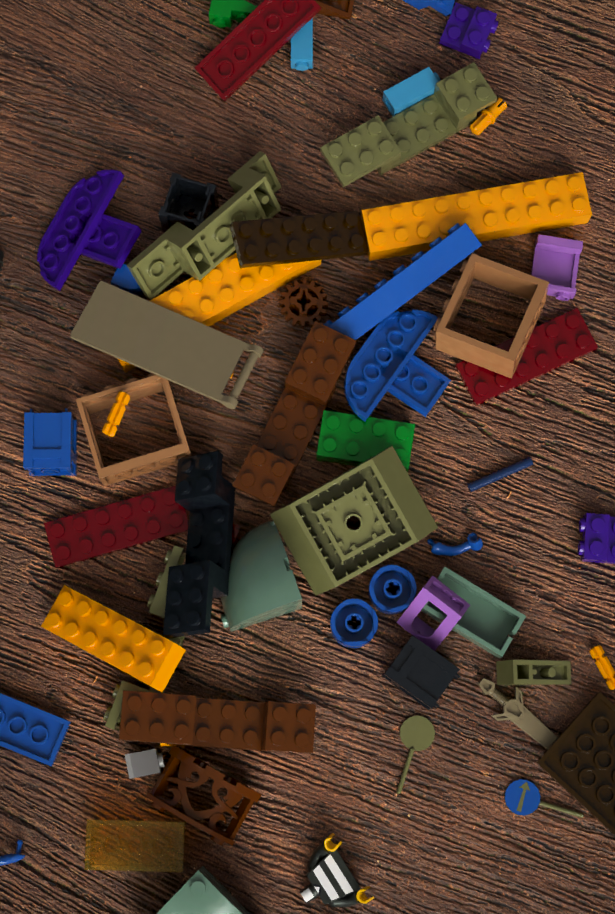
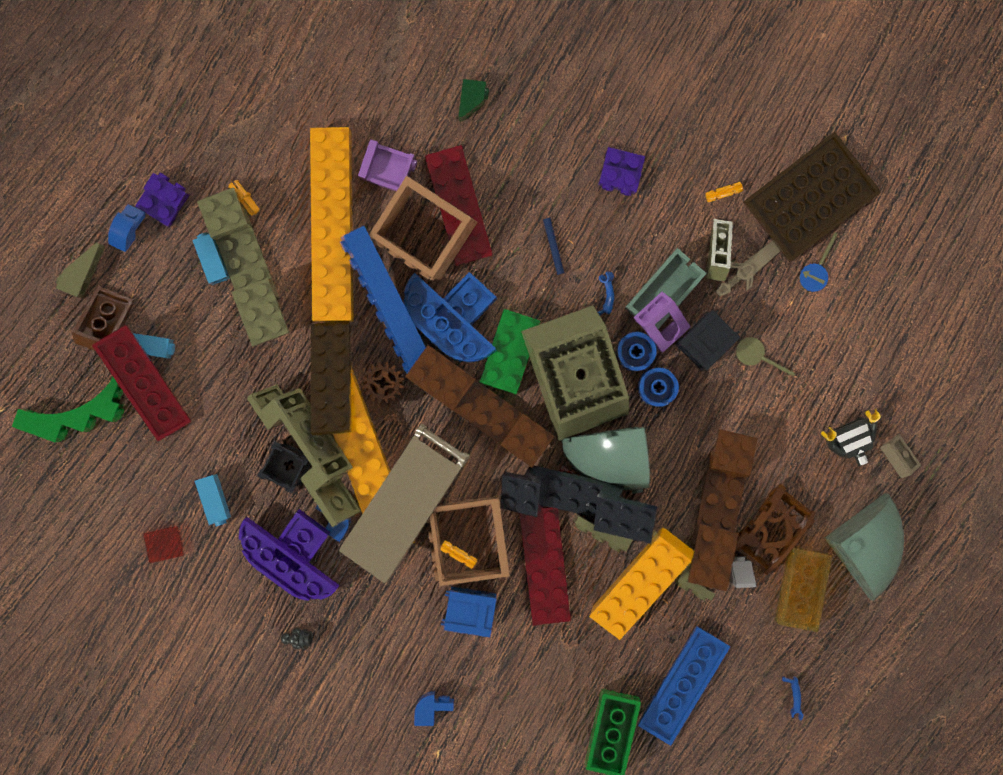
camera: 80 degrees left, 10 degrees up
(78, 93) = (163, 544): none -> clear red piece
(137, 137) = (213, 500): none -> dark azure brick

